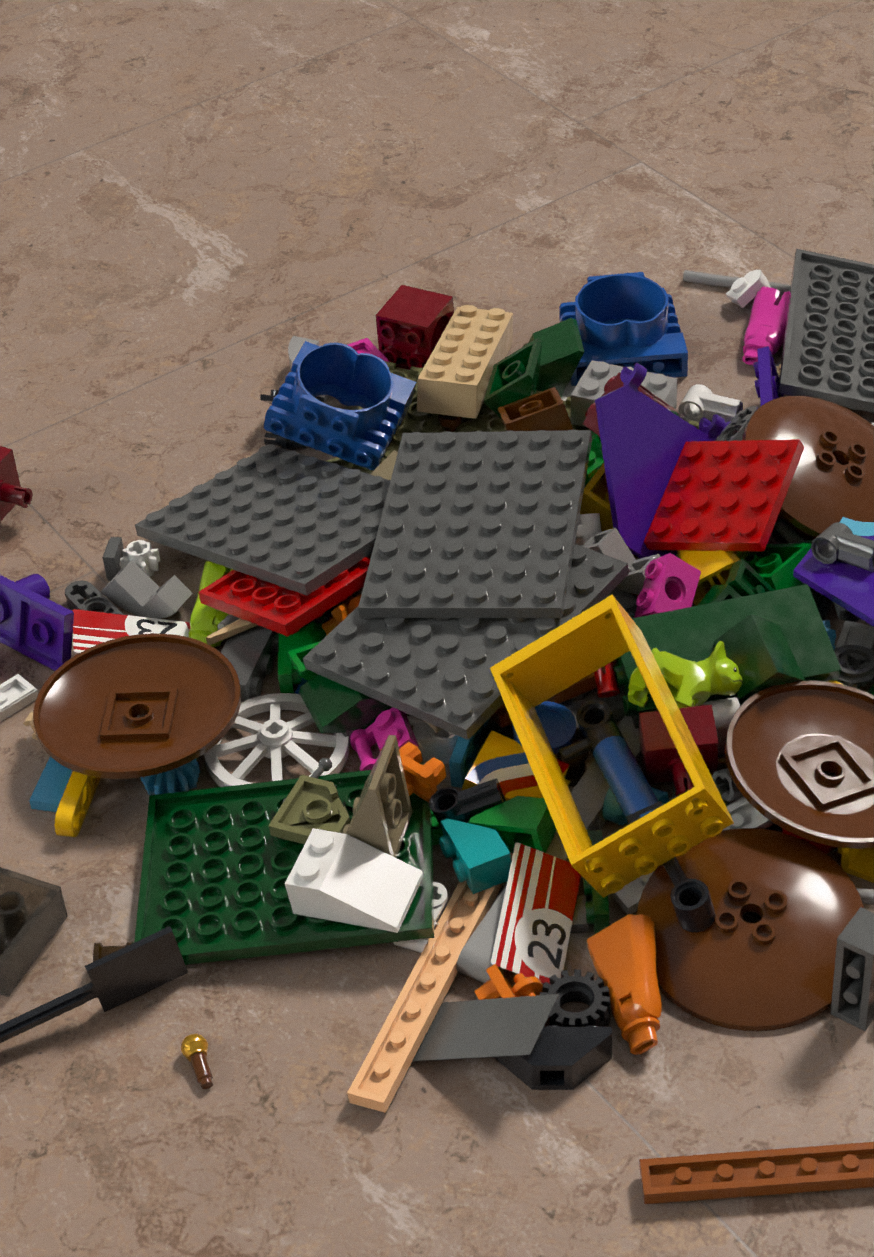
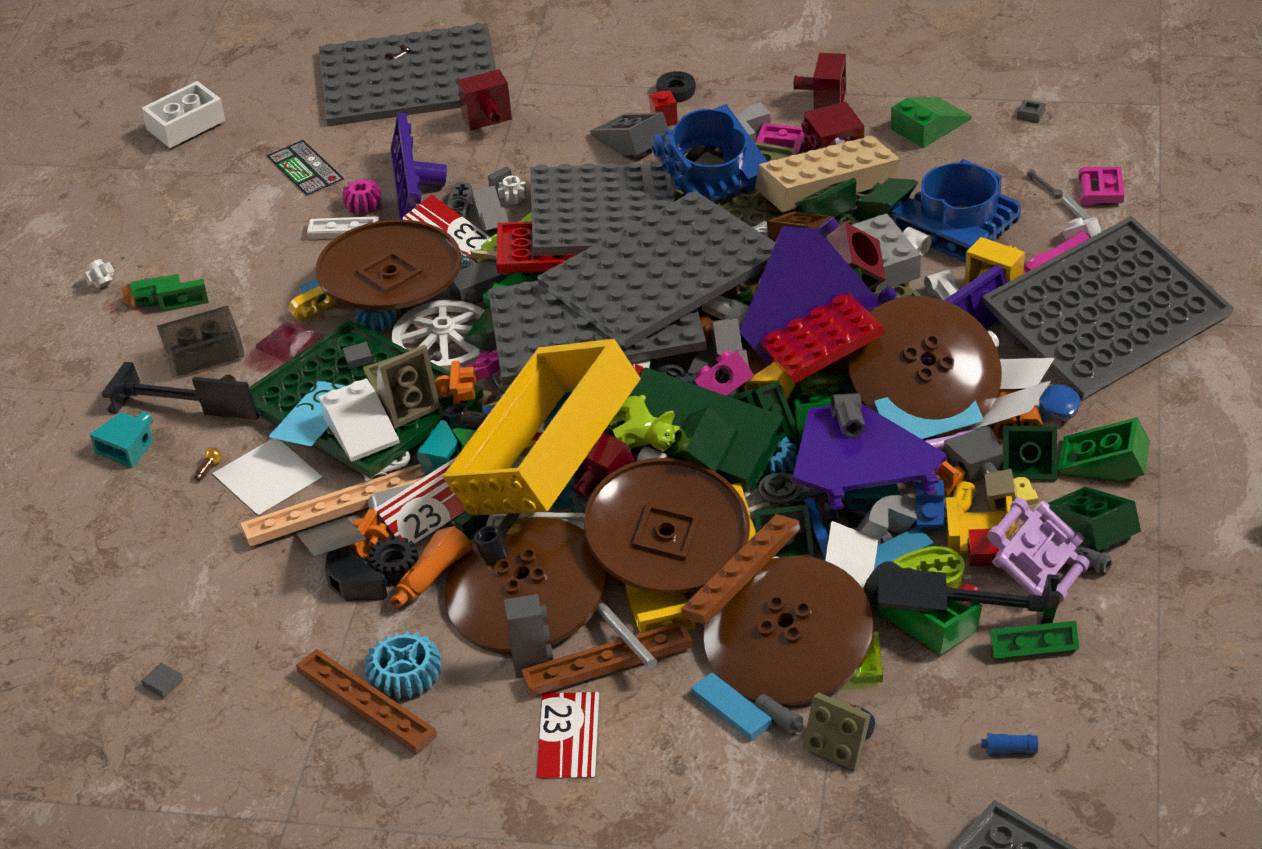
camera: 45 degrees right, 0 degrees up
(55, 1104) = (123, 438): none -> teal torso
(103, 864) = (288, 340): none -> clear pink slope
(169, 382) = (677, 78): none -> black tyre
(190, 435) = (631, 132): none -> dark grey slope
(193, 396) = (664, 102): none -> red brick
(228, 821) = (357, 355): none -> dark grey tile
(275, 932) = (302, 423): none -> medium azure sticker
(283, 1025) = (267, 475): none -> white sticker
(337, 287) = (828, 80): none -> dark red brick
(465, 275) = (926, 119): none -> green slope
(543, 220) = (1031, 111): none -> dark grey tile
(670, 275) = (1057, 194): none -> dark grey hinge
(707, 242) = (1109, 185): none -> dark pink plate
(732, 1117) = (402, 657): none -> medium azure gear
(733, 357) = (987, 253): none -> yellow brick

